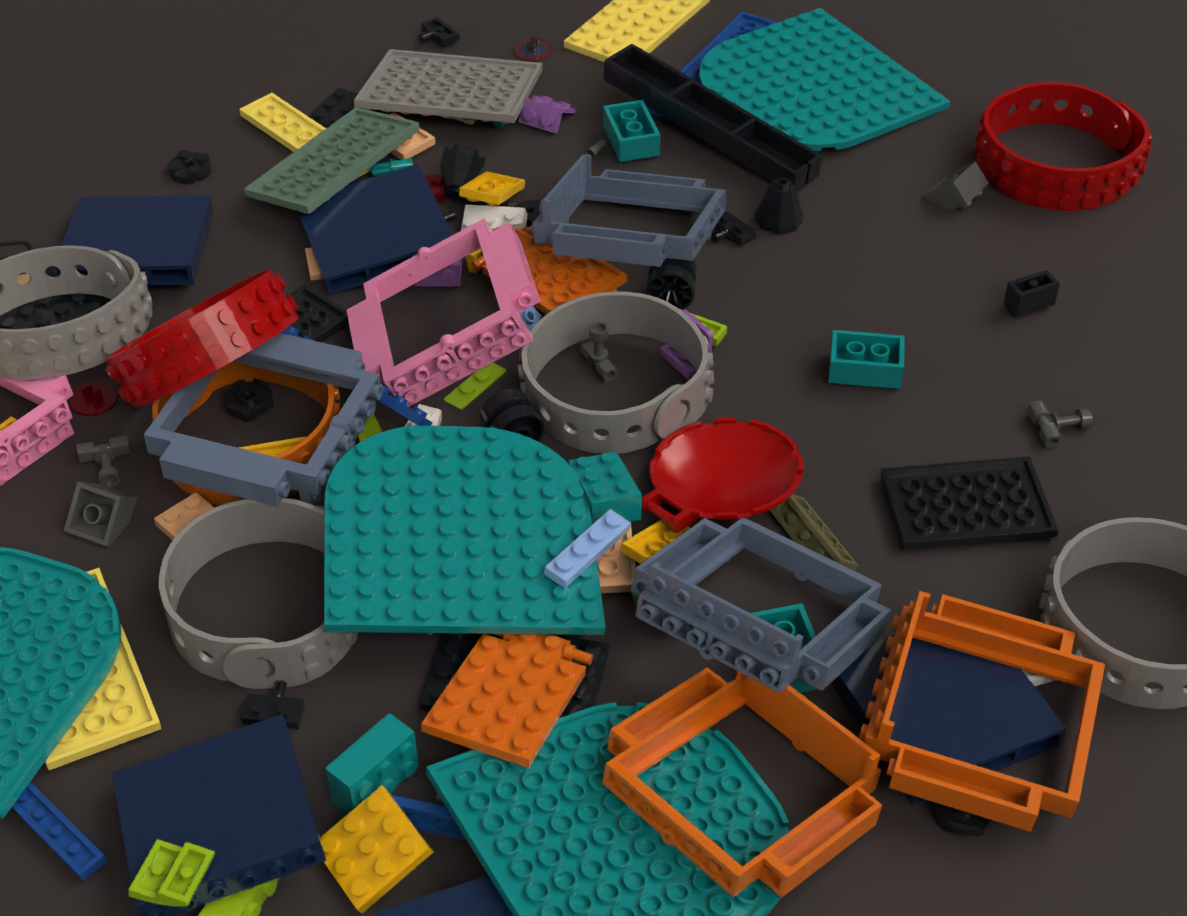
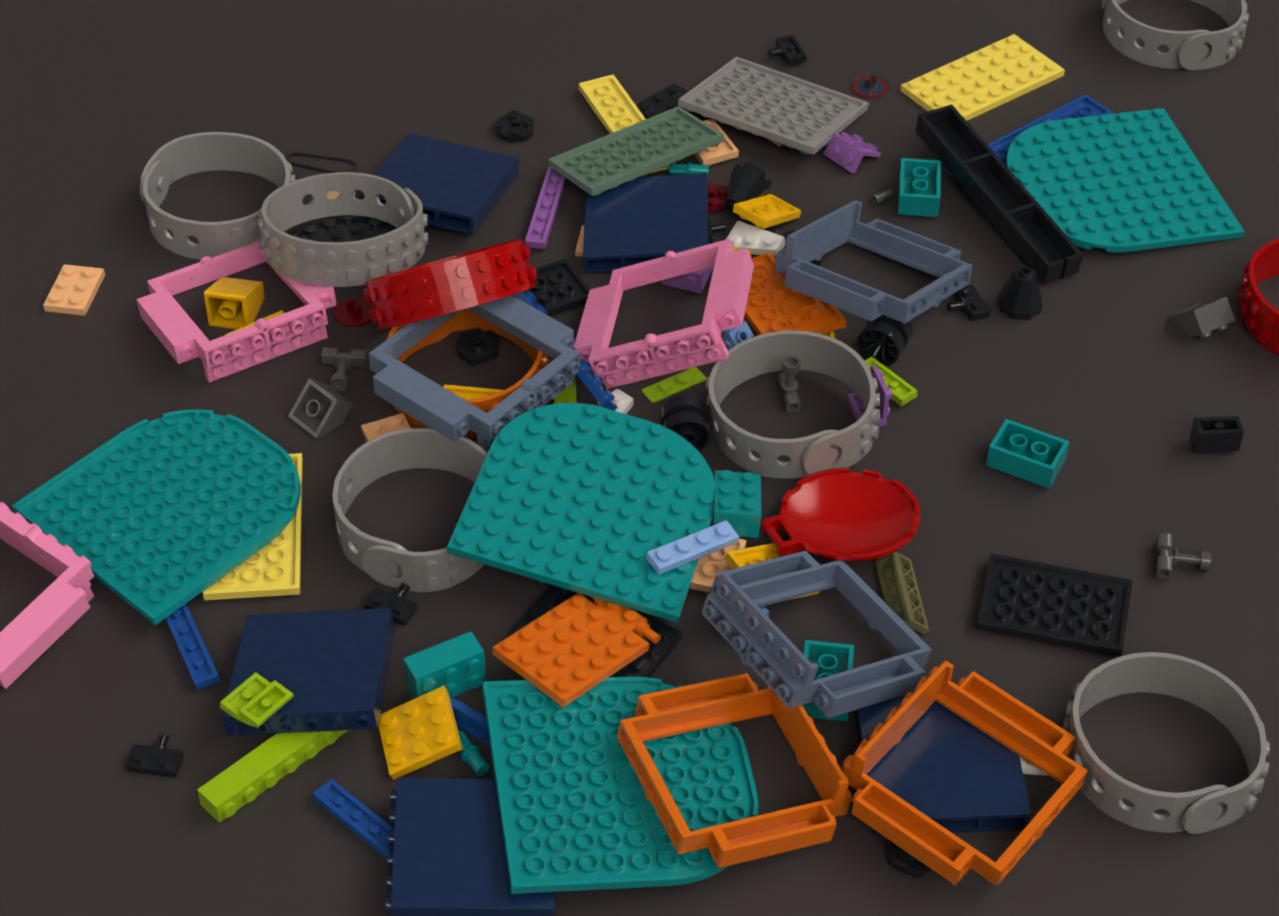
camera: 20 degrees right, 0 degrees up
(259, 235) = (545, 209): none -> medium lavender plate
(445, 857) = (471, 755): none -> teal axle

